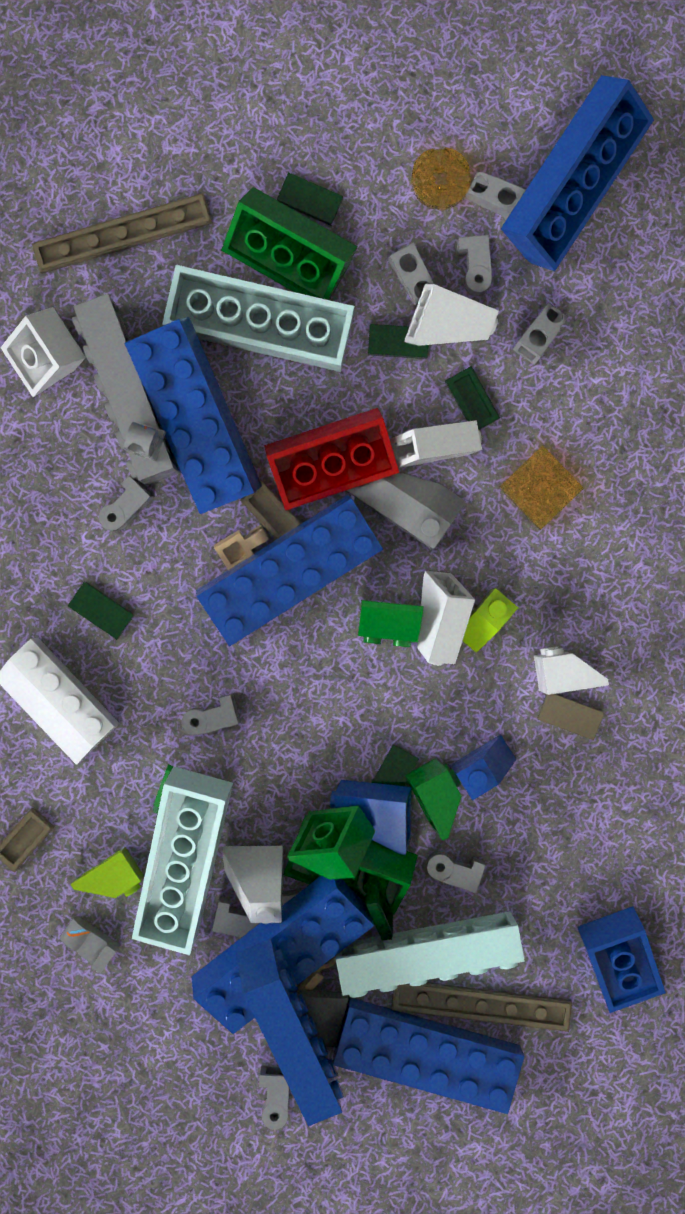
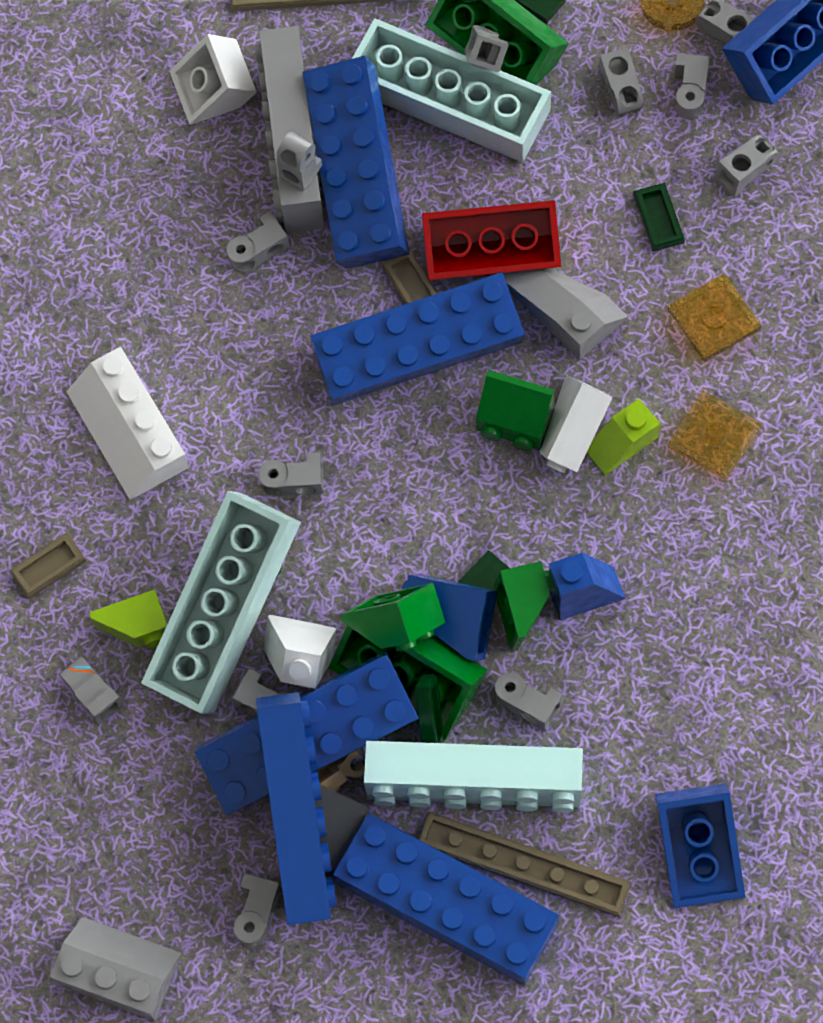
camera: 20 degrees right, 20 degrees down
(101, 610) = (202, 345): dark green tile -> none
(174, 1169) = (115, 968): none -> light grey slope
(238, 548) = (368, 305): tan plate -> none
(284, 277) = (485, 48): none -> light grey leg
(389, 342) = (591, 145): dark green tile -> none
(436, 443) = (607, 246): white slope -> none
(449, 318) = (651, 127): white slope -> none
(562, 597) = (714, 435): none -> clear yellow plate
(565, 672) = (701, 504): white slope -> none
(570, 716) = (697, 562): dark tan tile -> none

